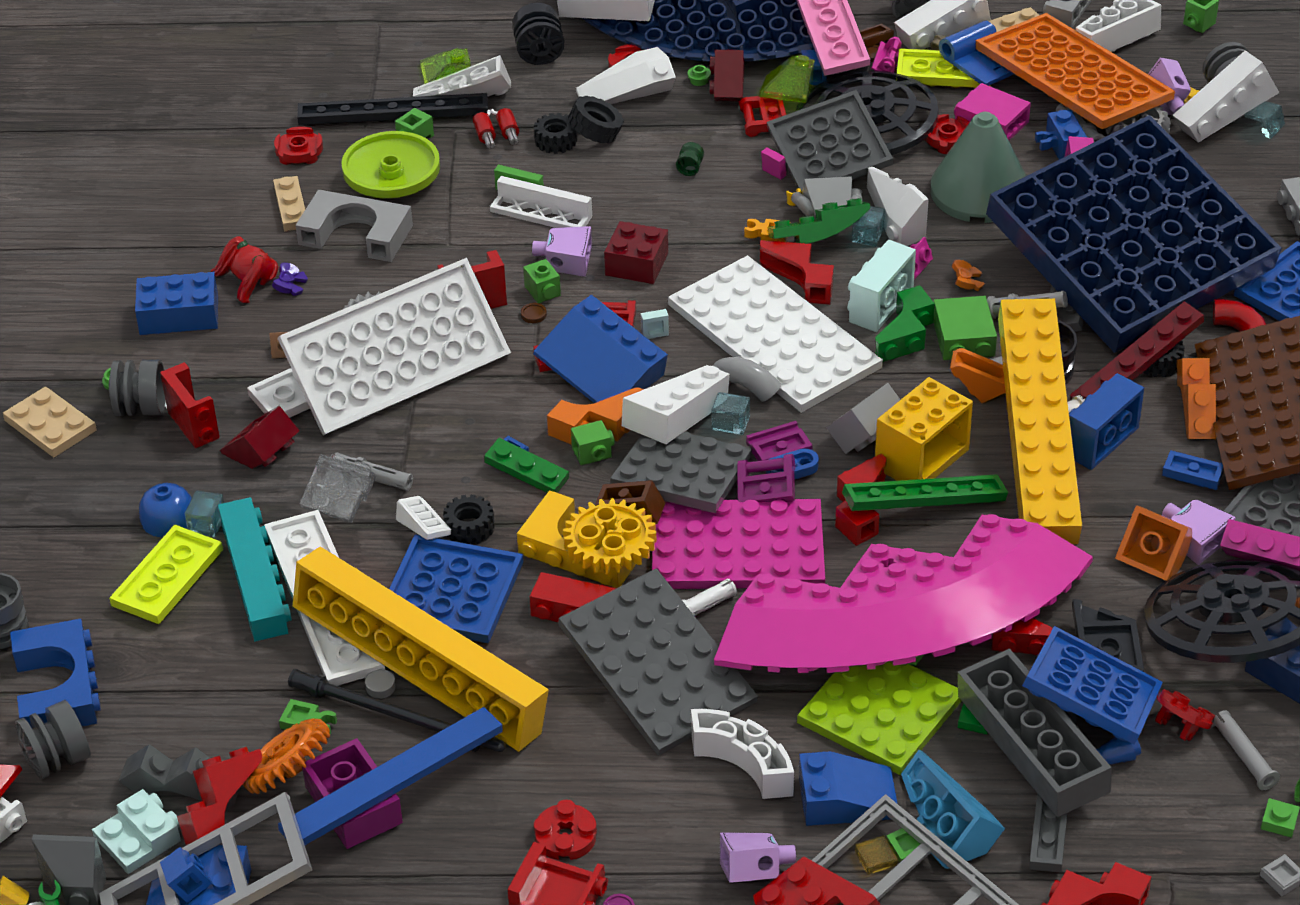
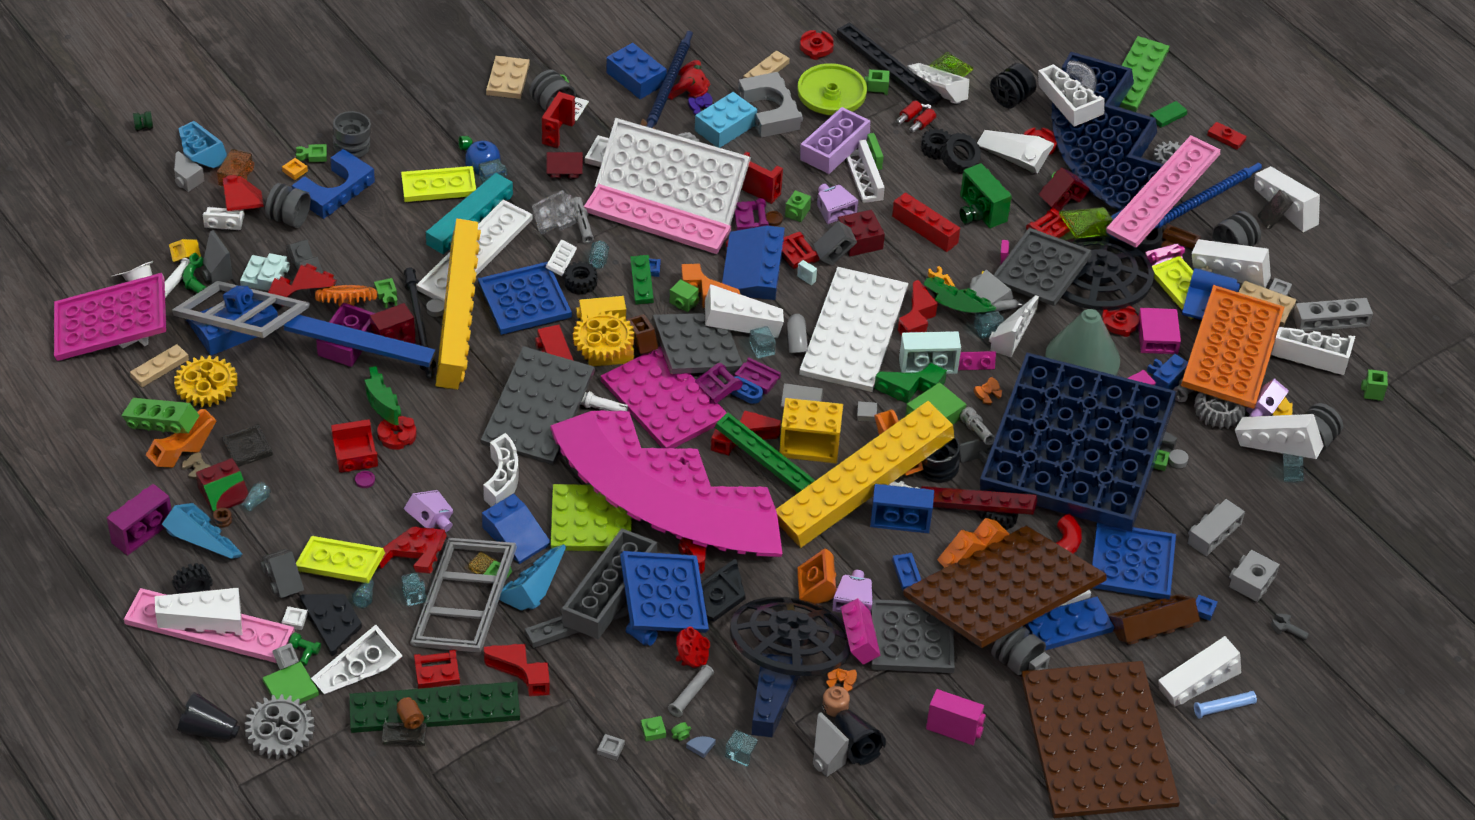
camera: 50 degrees right, 5 degrees up
(120, 515) = (465, 142): none -> green hinge
(230, 282) = (669, 80): none -> dark blue hose
(341, 268) = (725, 120): none -> medium azure brick
(393, 728) = (394, 323): none -> dark red brick
(437, 405) = (657, 218): none -> bright pink plate
(446, 483) = (598, 254): none -> clear light blue brick
(475, 200) = (834, 140): none -> lavender brick
(503, 814) = (382, 398): none -> green slope
(517, 336) = (744, 214): none -> magenta plate
(640, 274) = (835, 243): none -> dark grey brick
(670, 196) = (926, 222): none -> red brick
(674, 124) = (983, 188): none -> green brick
(909, 381) = (866, 411): none -> light grey tile
(1001, 8) = (1281, 287): none -> light grey tile

